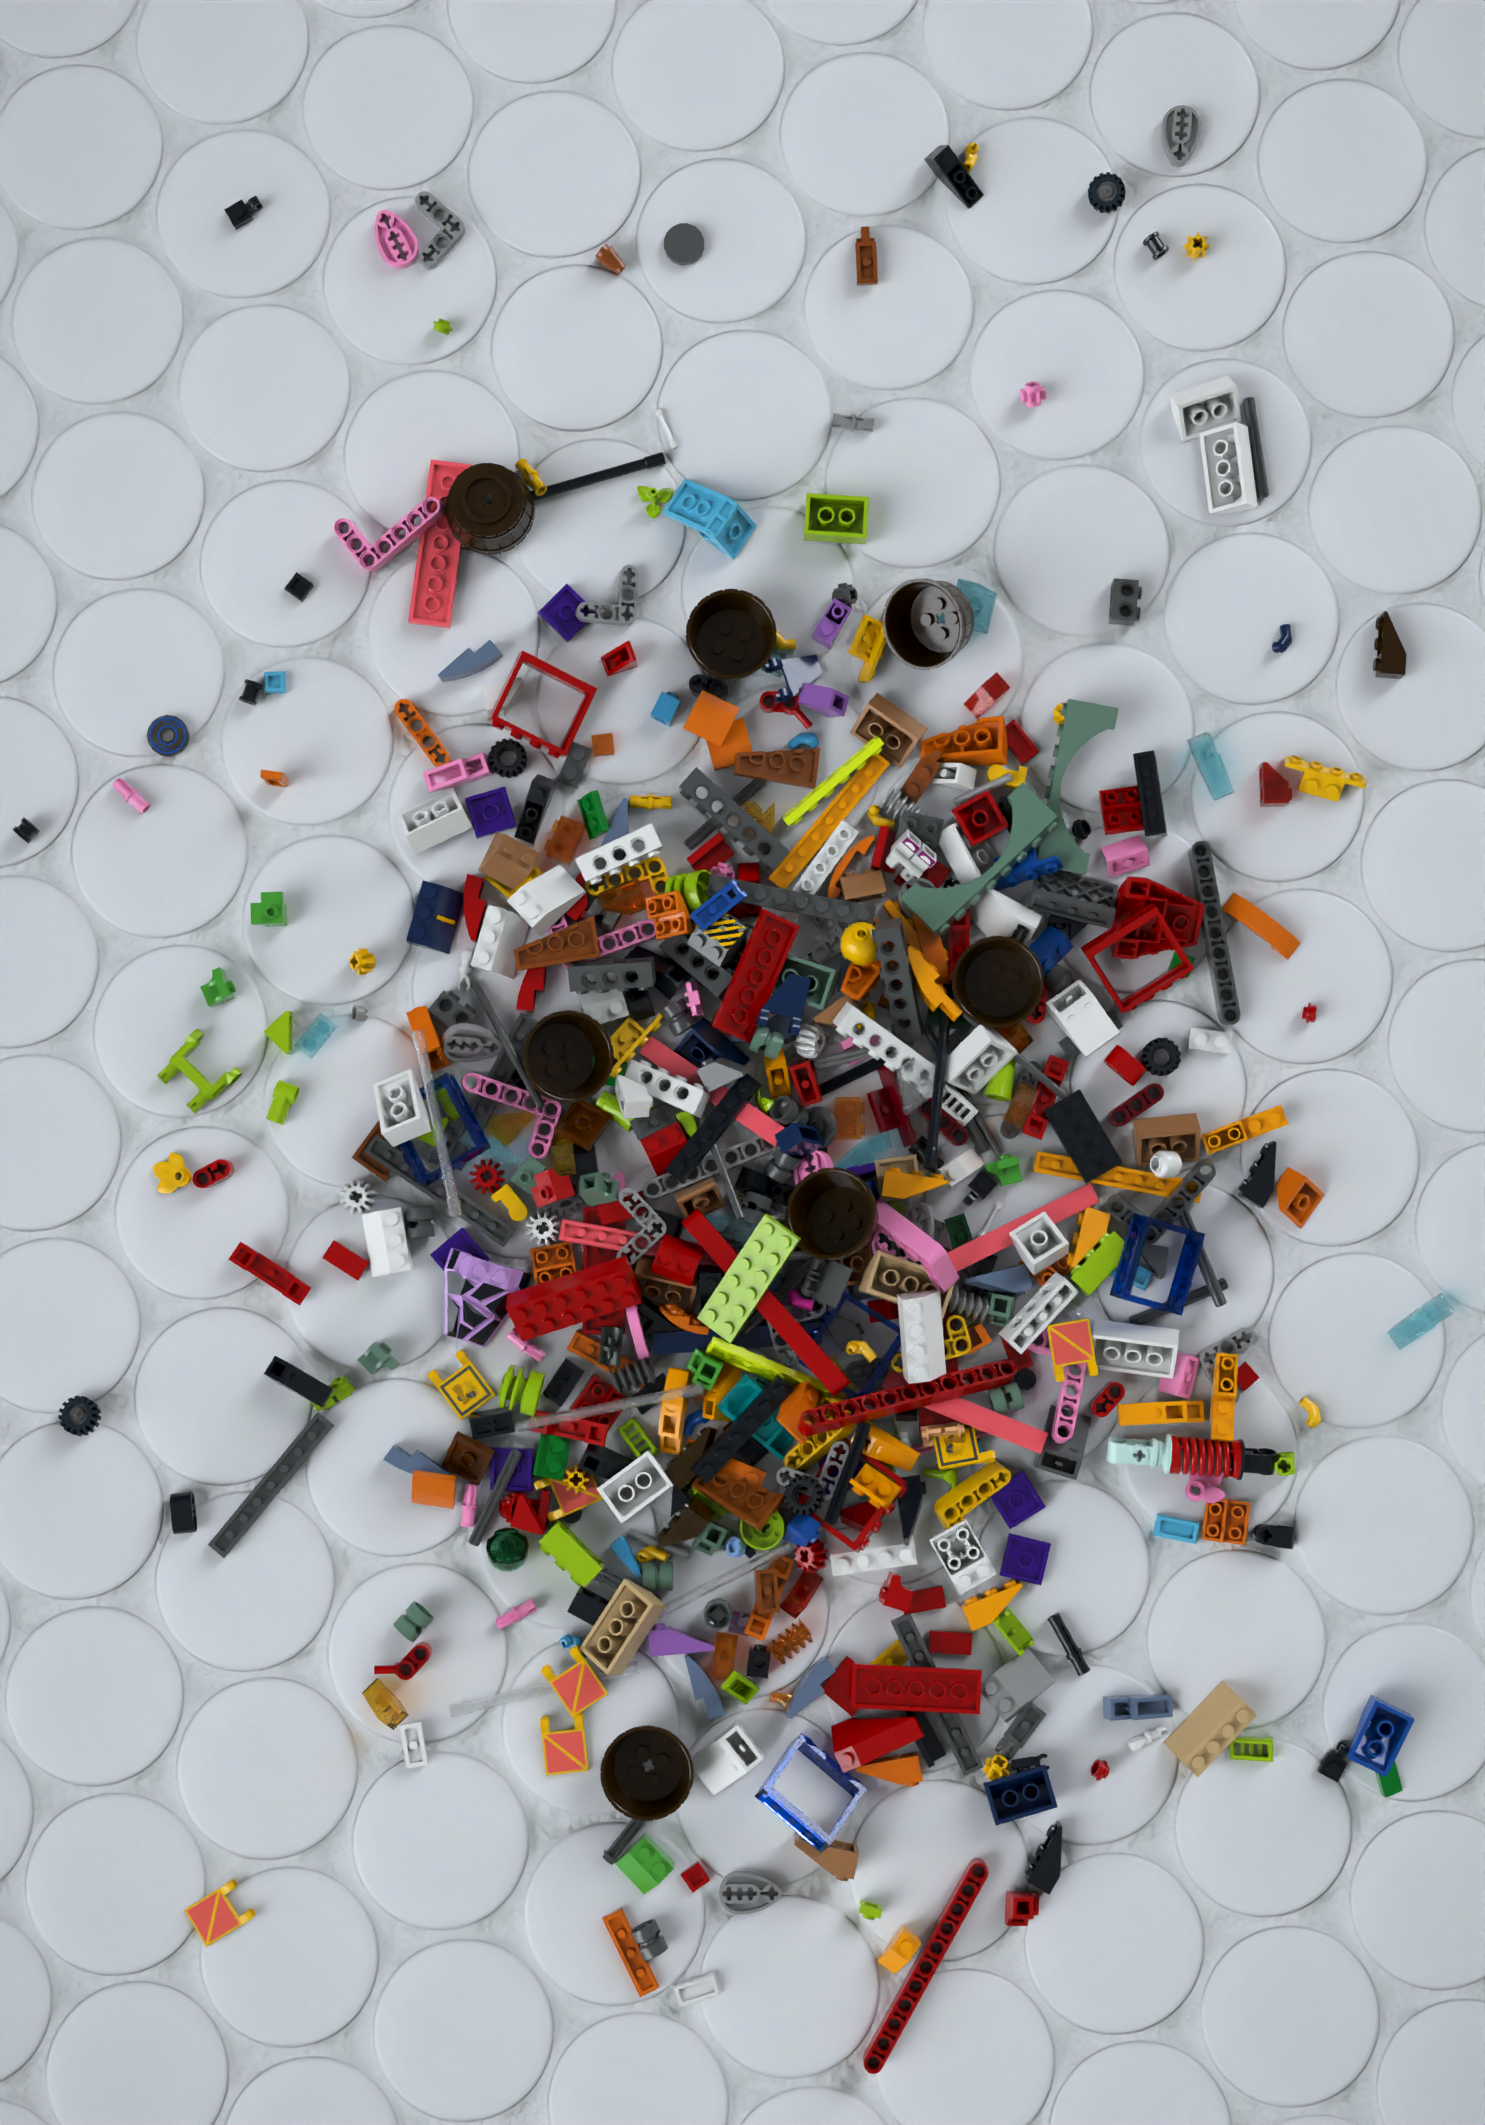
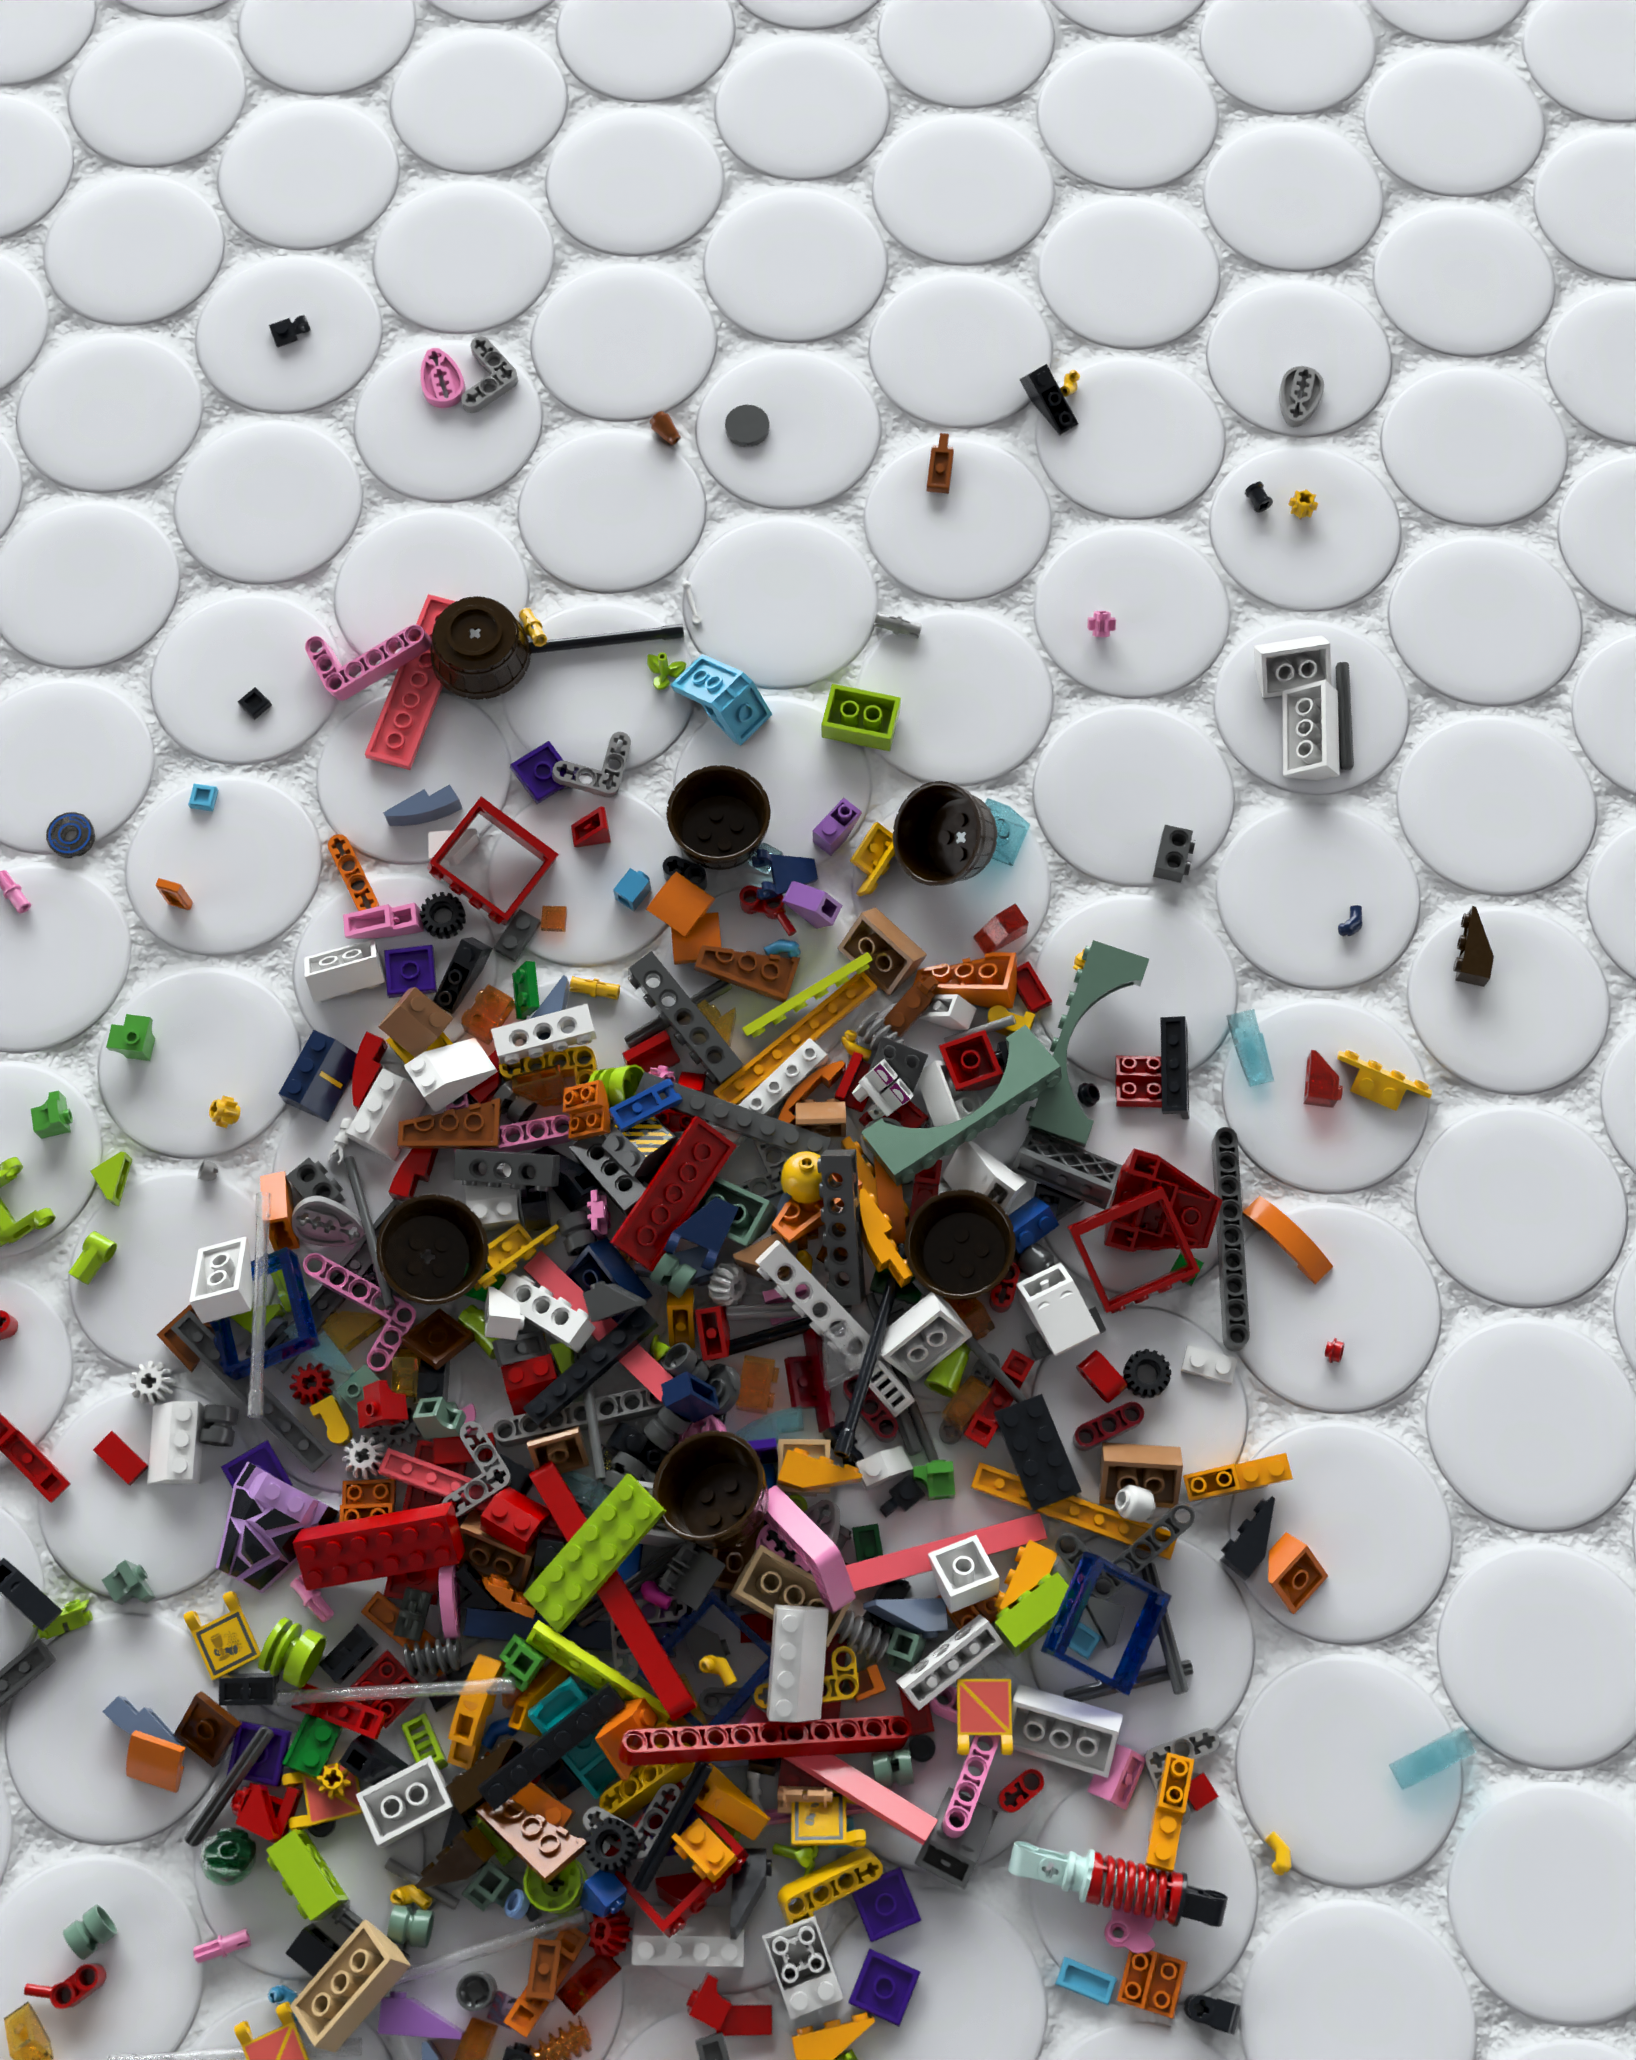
camera: 10 degrees right, 15 degrees down
(250, 692) = (173, 802): black bush -> none
(316, 1035) = (151, 1187): clear light blue plate -> none
(442, 326) = (471, 467): lime plate -> none
(469, 1505) = (196, 1792): bright pink axle -> none
(625, 1554) = (375, 1887): dark azure slope -> none
(784, 644) = (775, 840): yellow arm -> none
(845, 594) = (858, 797): dark grey gear -> none
(998, 1205) = (922, 1523): white hinge -> none
(1028, 869) = (1017, 1127): blue bracket -> none
(1106, 192) = (1211, 437): black wheel -> none
(1125, 856) = (1137, 1132): bright pink panel -> none
(1160, 1413) = (1086, 1820): light orange slope -> none
(1285, 1463) = (1237, 1916): lime piece -> none

